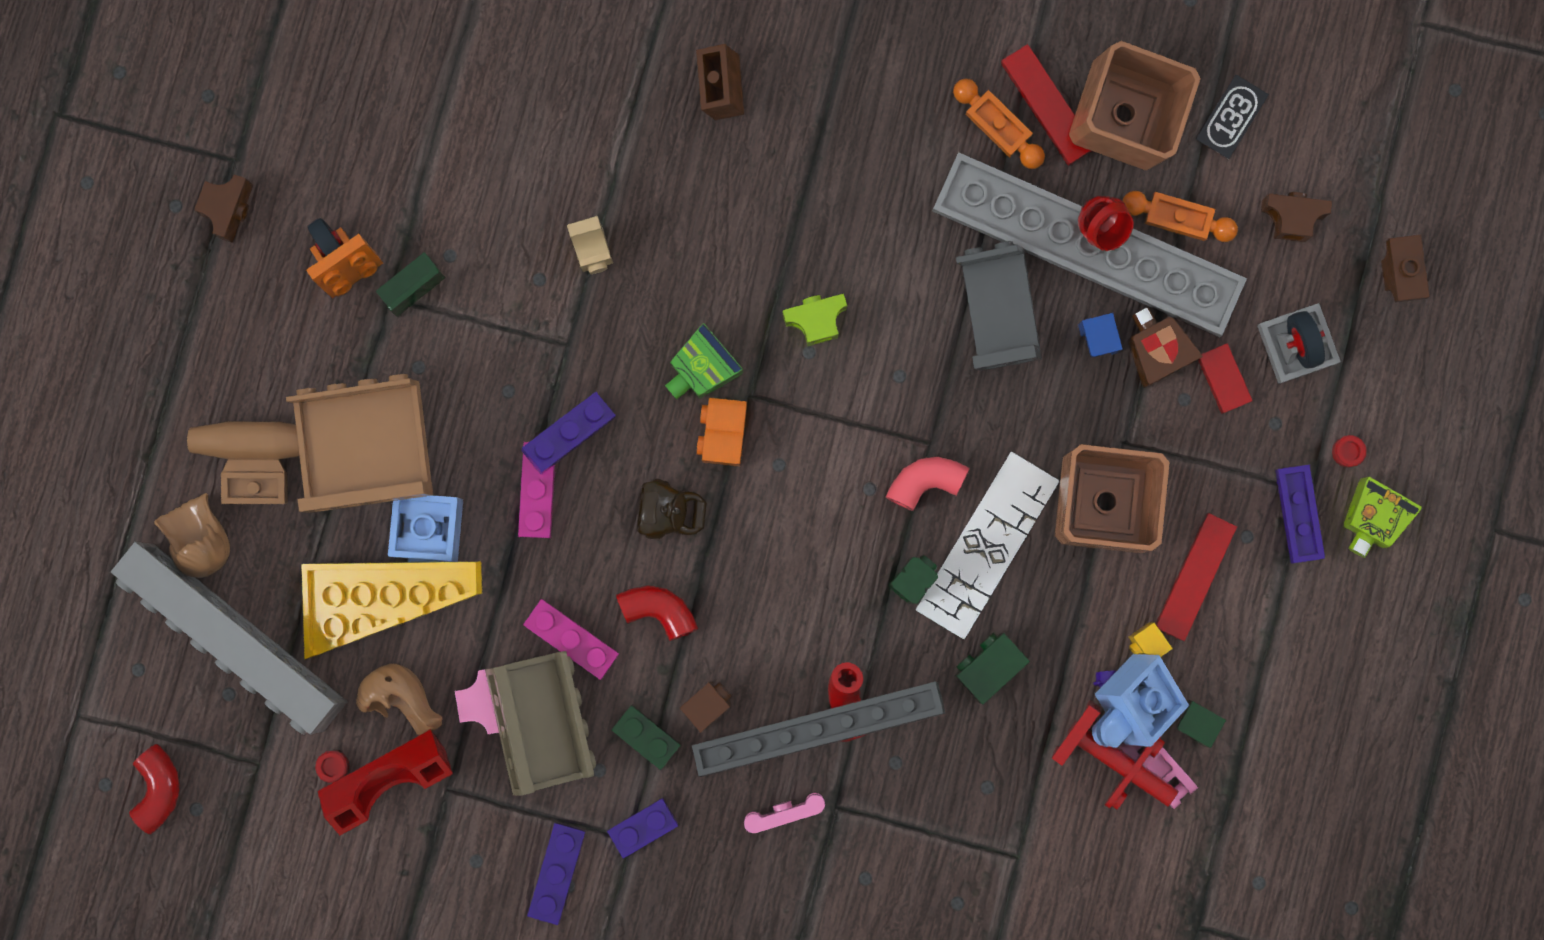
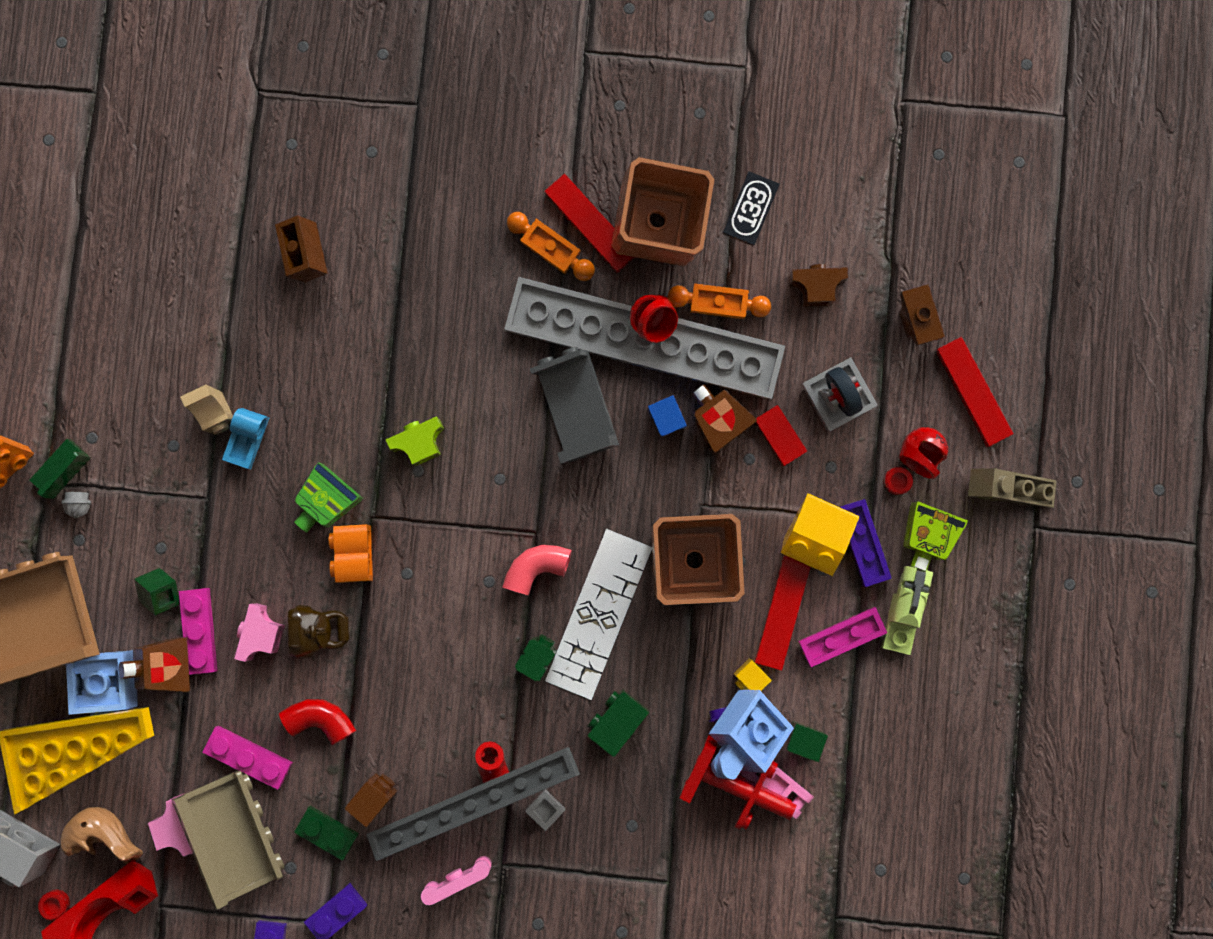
camera: 15 degrees left, 0 degrees up
(424, 326) = (76, 504): none -> light grey plate
(493, 521) = (159, 666): none -> reddish brown torso
(499, 438) = (157, 591): none -> dark green panel
(568, 433) = (216, 577): dark purple plate -> none
(604, 503) = (257, 633): none -> bright pink brick
(623, 283) = (246, 437): none -> dark azure plate
(894, 751) = (545, 810): none -> light grey plate
(1252, 495) = (819, 534): none -> yellow slope
(1258, 615) = (842, 637): none -> dark pink plate
(1336, 596) = (907, 610): none -> yellowish green plate
(1384, 422) = (924, 451): none -> red helmet
(1452, 365) = (974, 392): none -> red tile
(1477, 479) = (1011, 487): none -> dark tan slope

